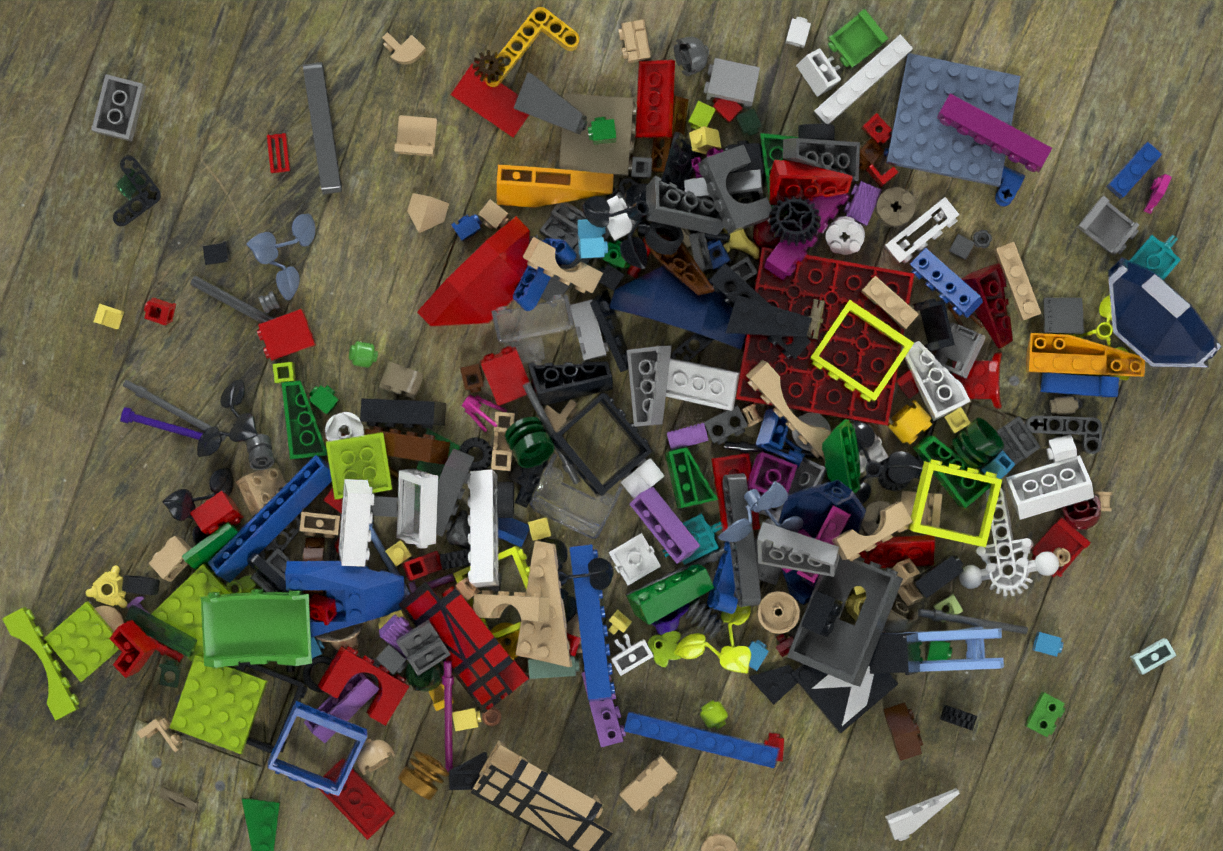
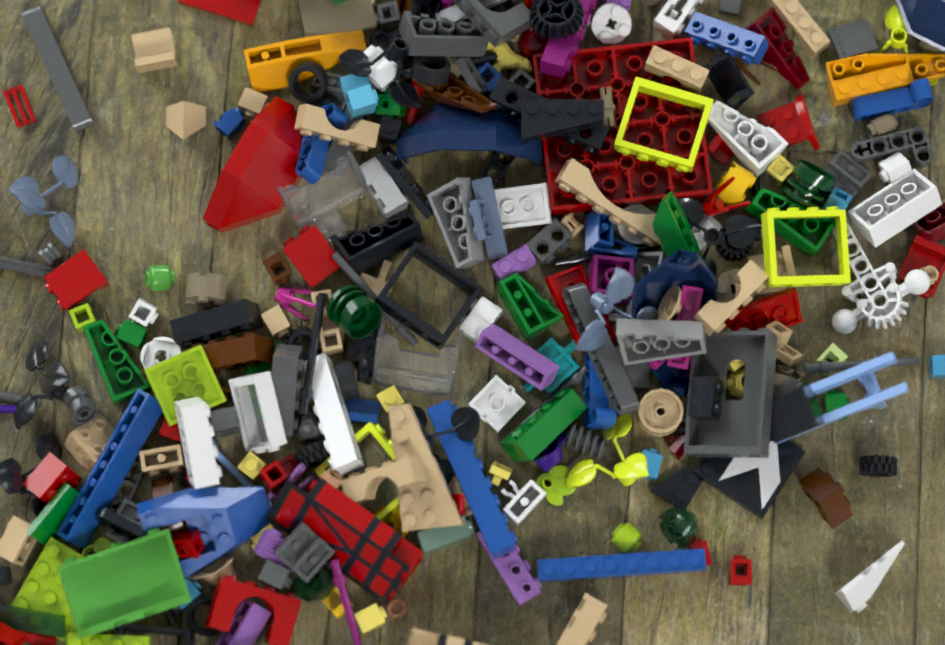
camera: 25 degrees left, 10 degrees down
(340, 383) = (144, 312): none -> white brick
(428, 578) = (292, 478): none -> medium lavender piece
(457, 427) = (276, 322): none -> tan brick
(465, 503) = (306, 392): none -> black bar
(539, 221) = (297, 91): none -> black tyre
(675, 389) = (487, 218): none -> sand blue bracket
(764, 718) = (679, 526): none -> clear green cylinder
(806, 781) = (744, 579): none -> red brick
(815, 520) = (670, 304): none -> tan dish
(885, 438) = (716, 206): none -> red plant
(938, 575) = (812, 327): black brick -> none
(963, 352) = (764, 100): light grey container -> none

